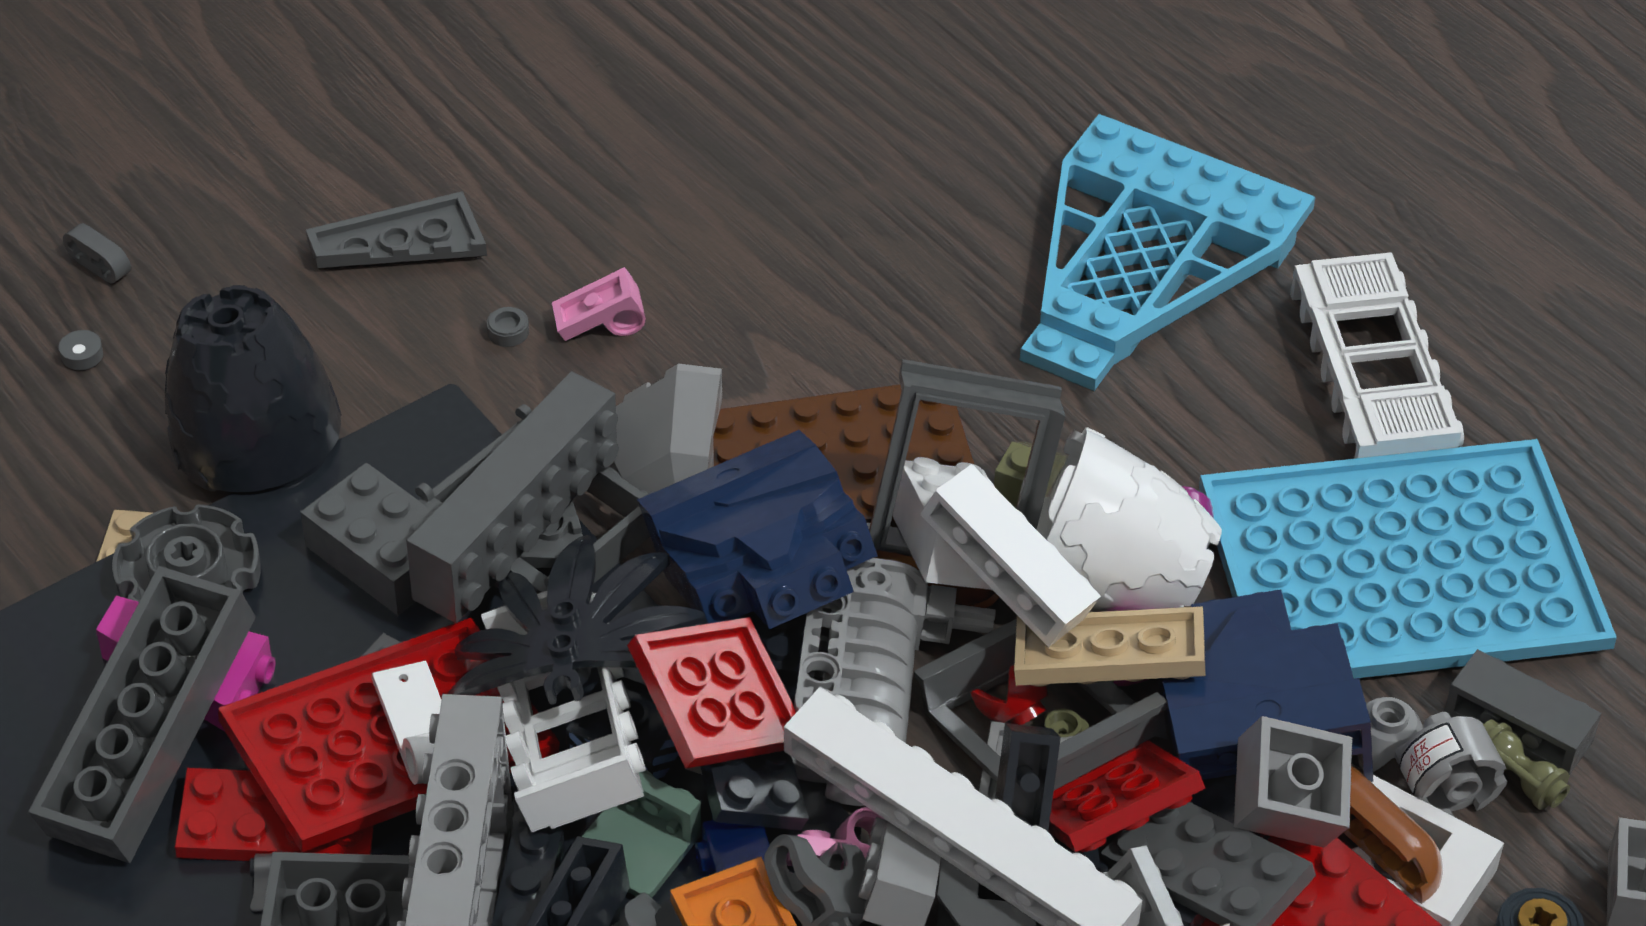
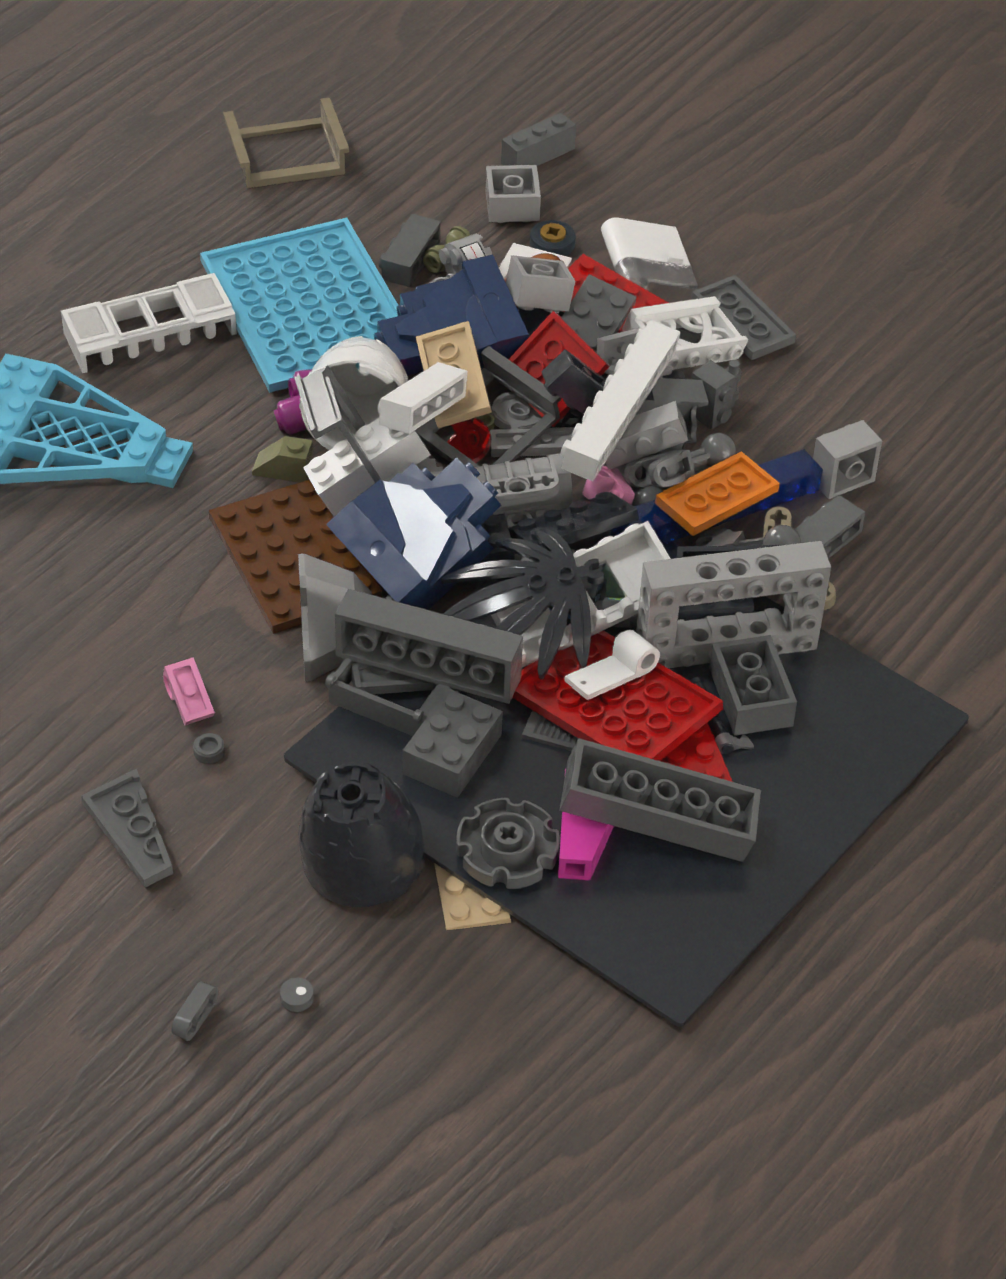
camera: 105 degrees left, 0 degrees up
(714, 690) = (566, 510): plate -> none

